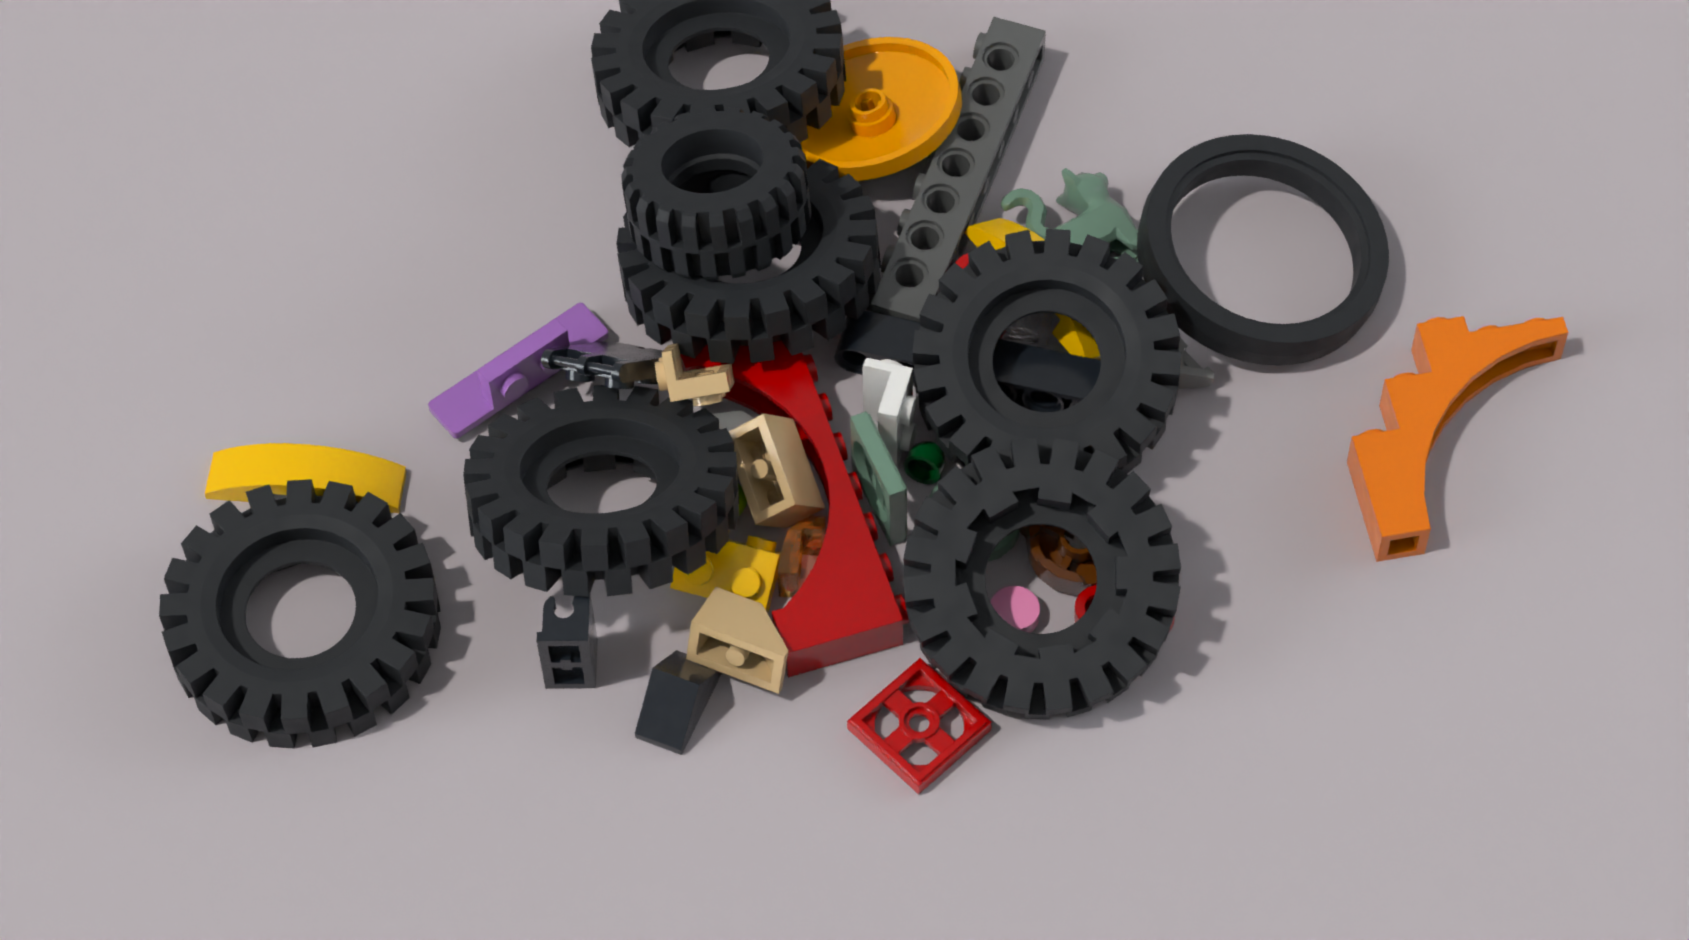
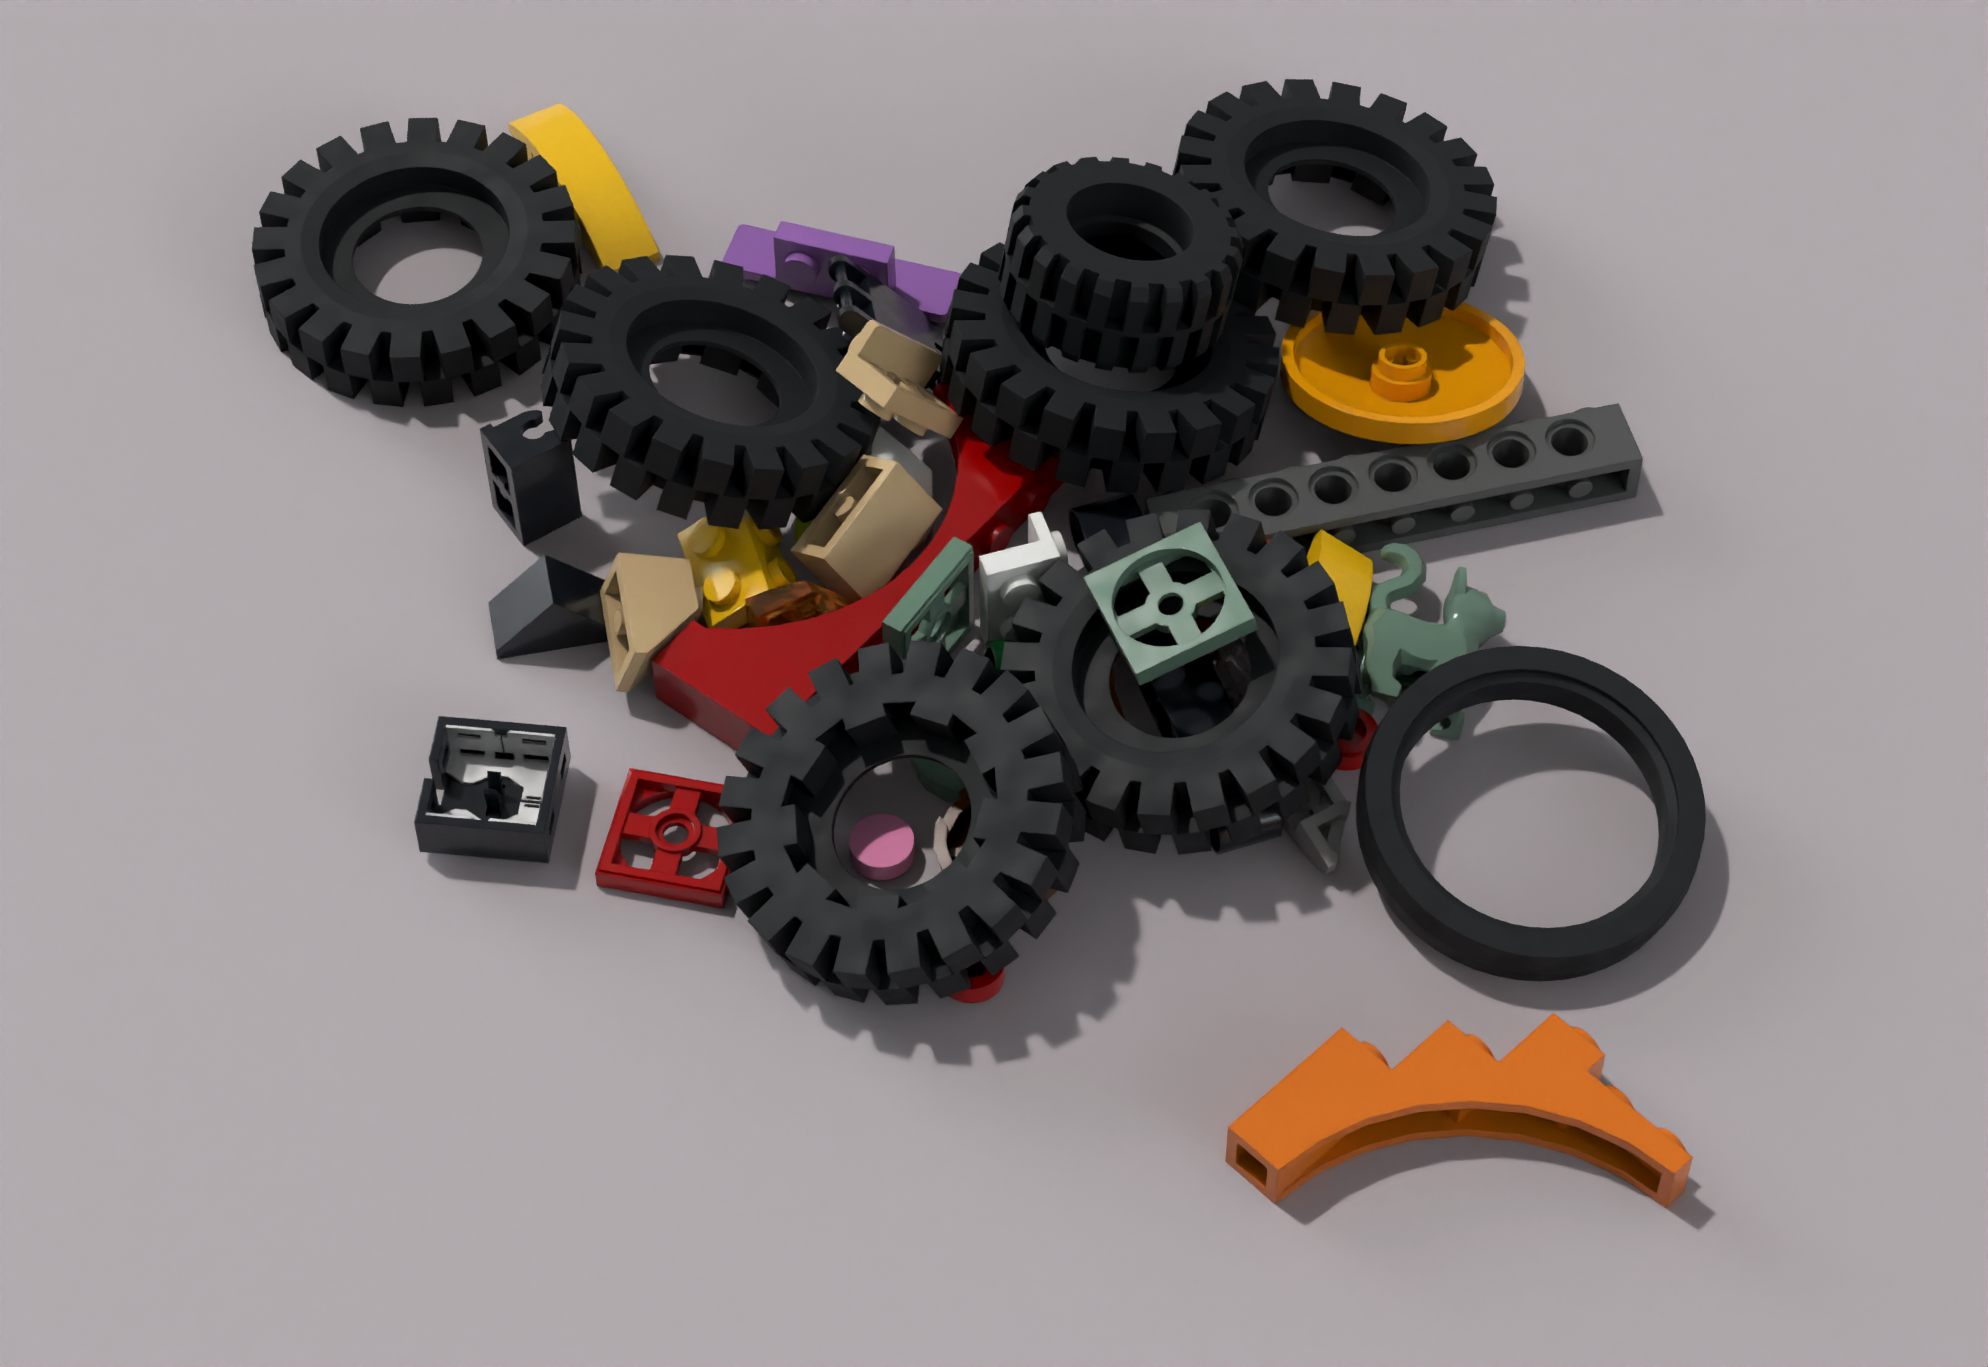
camera: 55 degrees right, 5 degrees down
(824, 790) = (473, 766): none -> black piece
(1037, 369) = (1149, 564): none -> sand green piece

